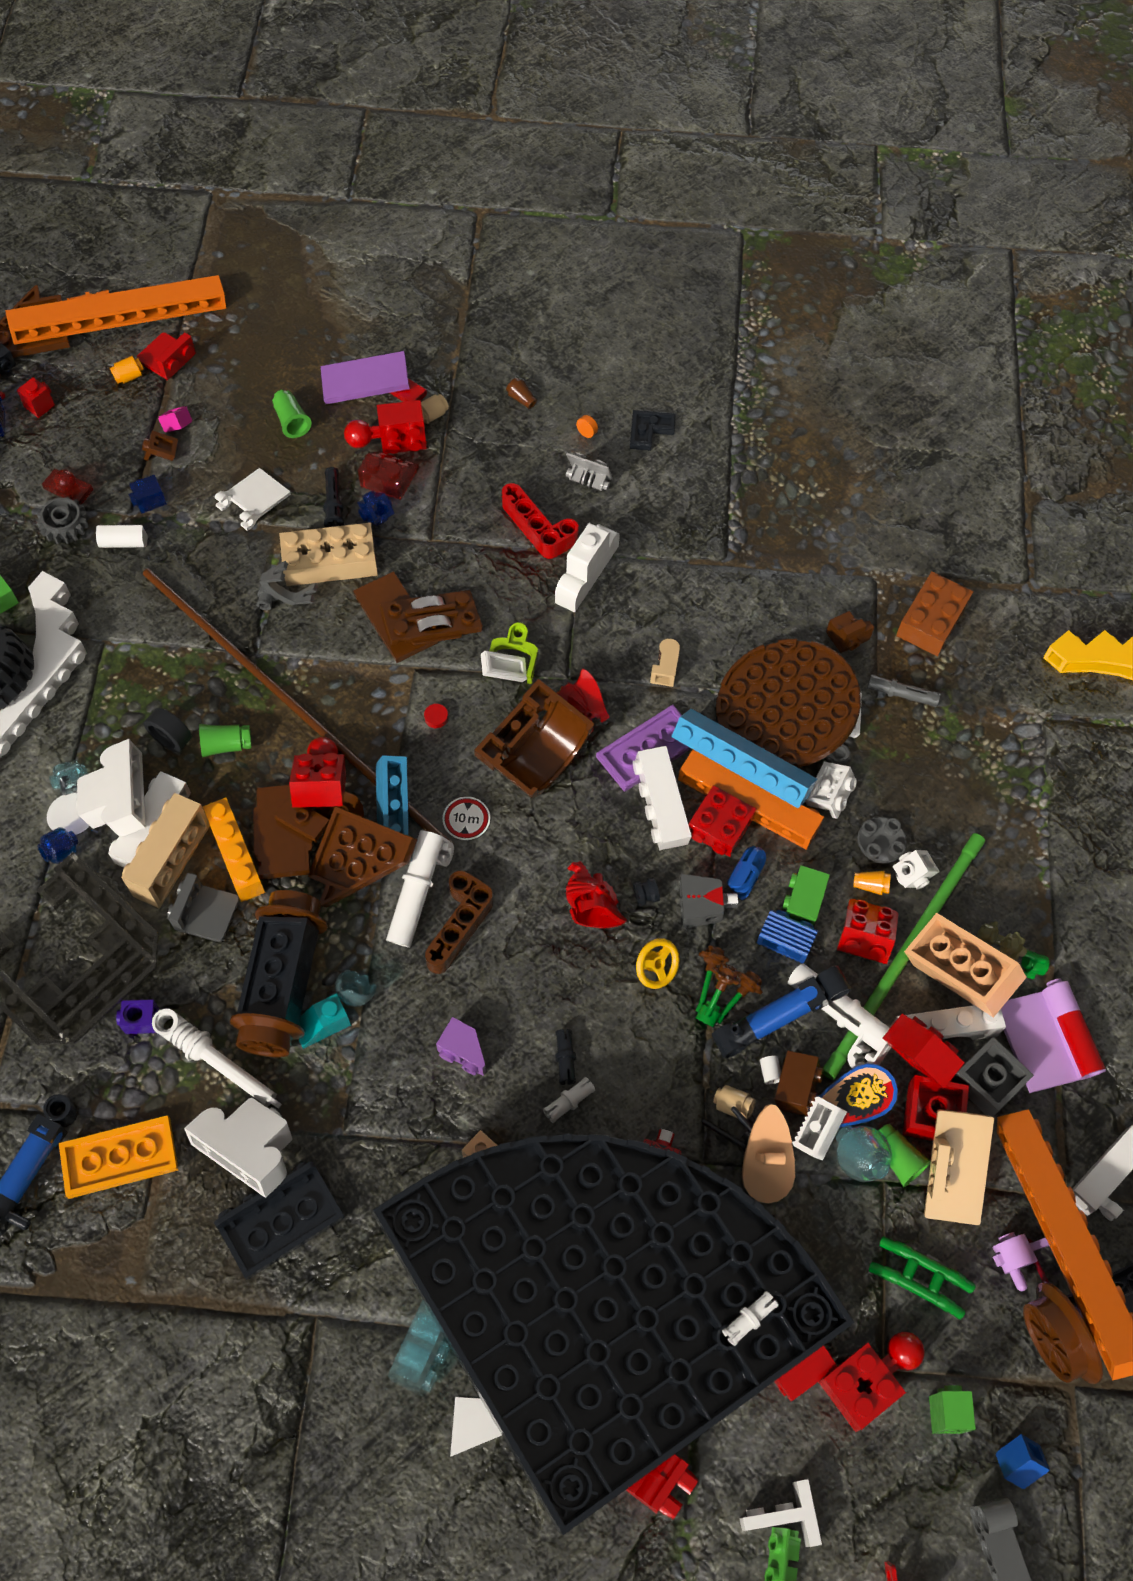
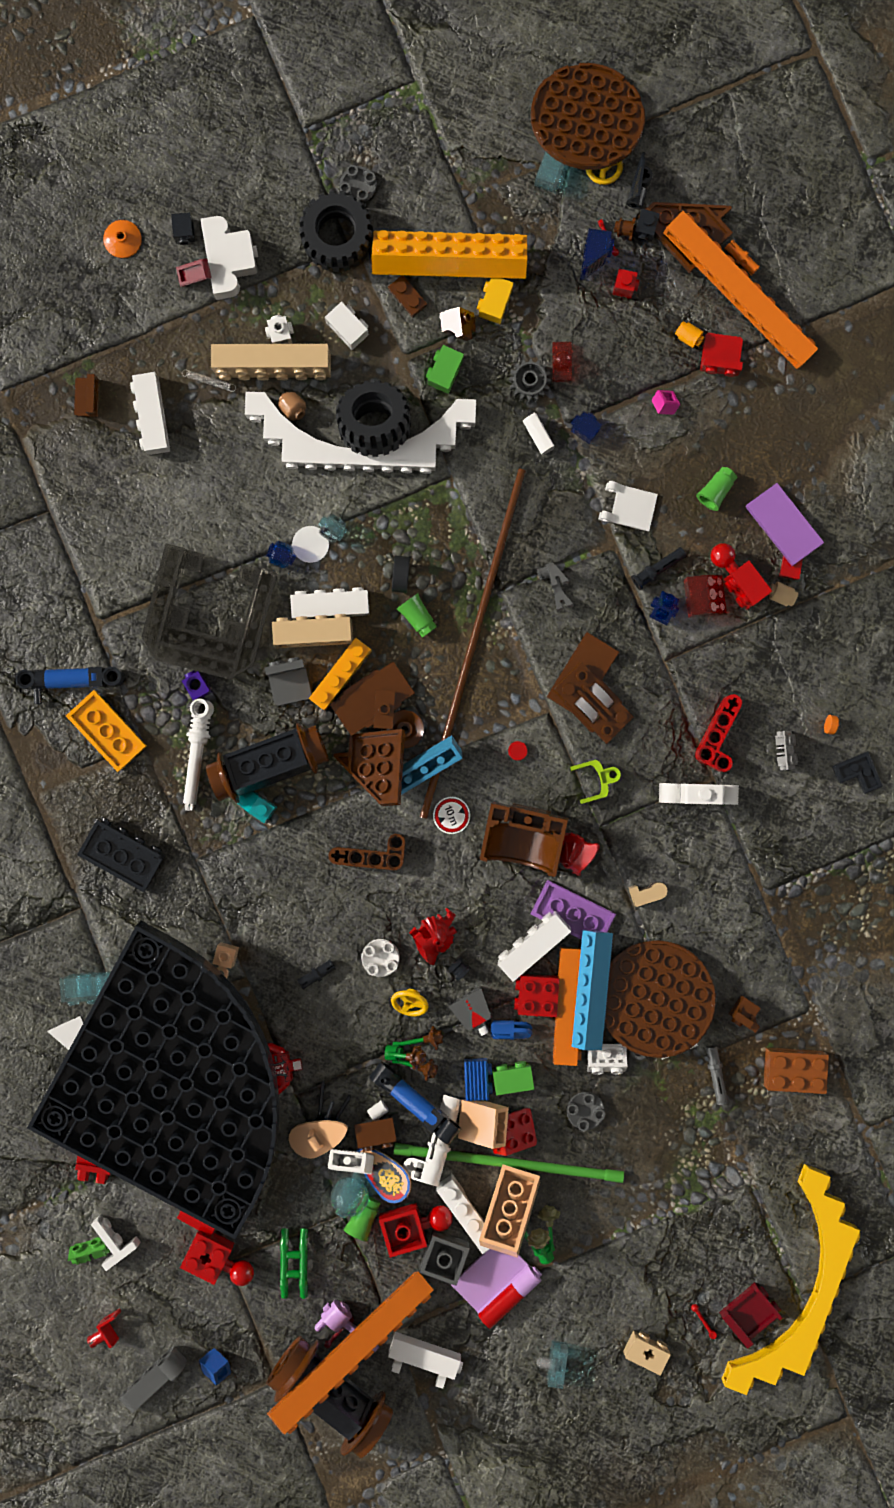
camera: 65 degrees right, 25 degrees up
(114, 792) = (335, 569): white brick -> none
(160, 445) = (633, 408): reddish brown bracket -> none
(244, 1143) = (151, 807): white brick -> none
(318, 776) = (419, 703): red brick -> none
(328, 554) = (593, 594): tan brick -> none
(354, 988) = (288, 814): clear light blue hair -> none
(428, 852) = (407, 813): white piece -> none
(461, 1045) = (288, 904): medium lavender slope -> none
(503, 666) = (579, 779): white tile -> none
(520, 392) = (836, 655): reddish brown cone -> none
(569, 1100) = (289, 991): white pin -> none
(586, 973) = (380, 958): none -> white dish
(729, 1097) = (342, 1098): tan brick -> none
(750, 1318) = (200, 1178): white pin -> none
(843, 943) = (483, 1123): none -> light nougat brick
(875, 882) = (549, 1119): light orange cone -> none
(915, 869) = (571, 1145): white brick -> none
(924, 1049) = (429, 1211): red brick -> none
(952, 1411) = (218, 1316): bright green brick -> none
(958, 1167) = (371, 1260): tan bracket -> none

